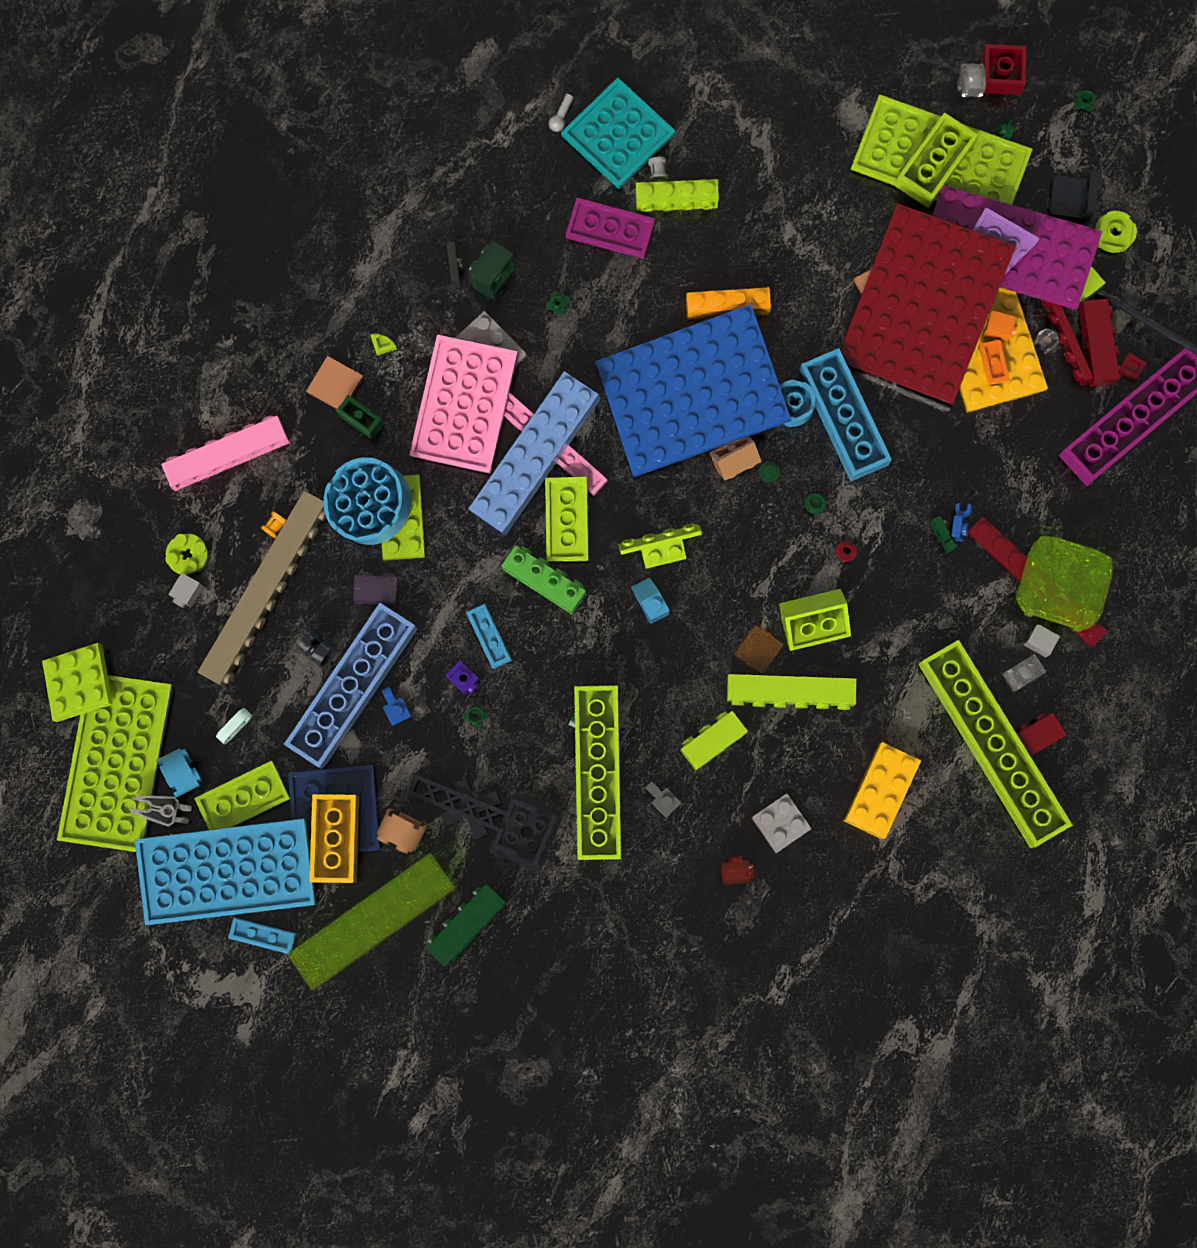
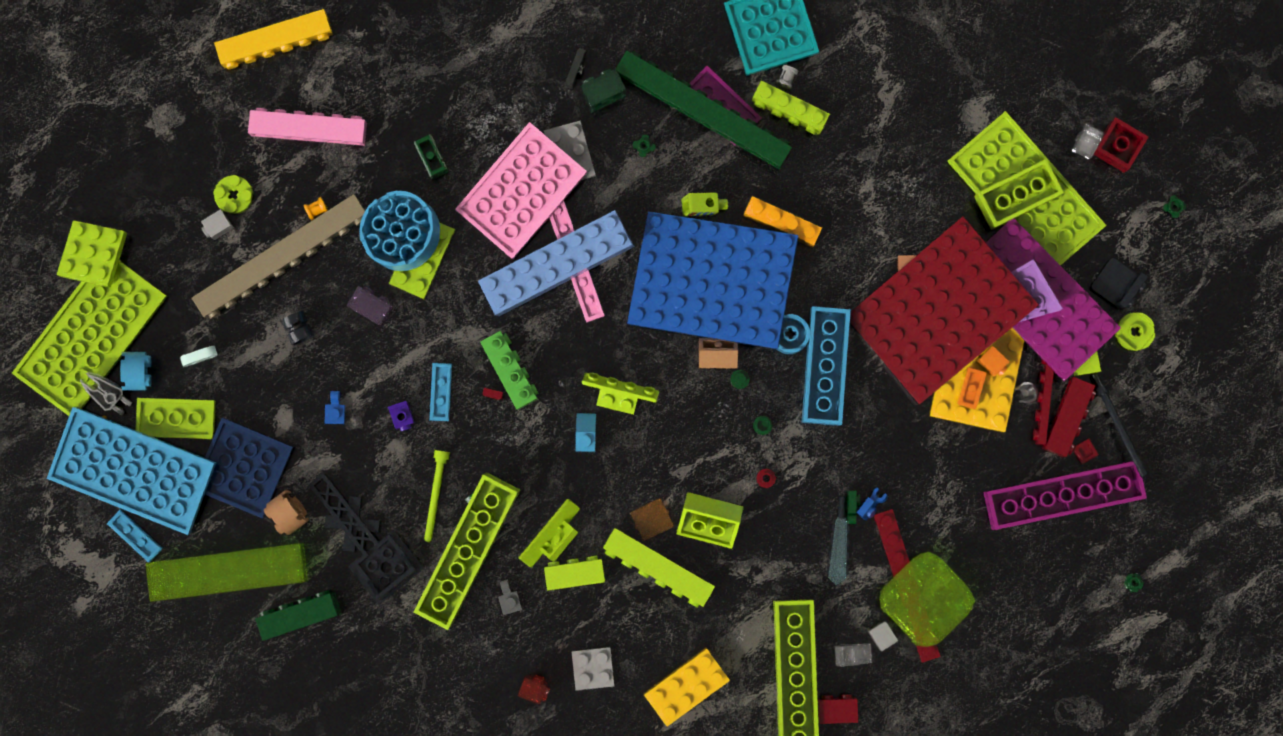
camera: 20 degrees right, 5 degrees up
(149, 387) = (273, 38): none -> yellow brick
(334, 382) = (426, 115): nougat tile -> none
(334, 838) = (229, 492): yellow brick -> none
(351, 686) = (307, 374): medium blue brick -> none
(382, 344) = (482, 103): lime tile -> none
(469, 716) = (397, 446): dark green plate -> none
(523, 699) = (440, 457): none -> lime piece
(540, 610) = (493, 394): none -> dark red tile
(567, 519) = (554, 331): lime plate -> none
(597, 237) = (703, 110): none -> dark green brick
(643, 326) = (695, 204): none -> lime torso
(673, 716) = (553, 537): none -> lime bracket
(956, 588) = (838, 556): none -> clear light blue sword
(1006, 130) = (1093, 197): dark green plate -> none

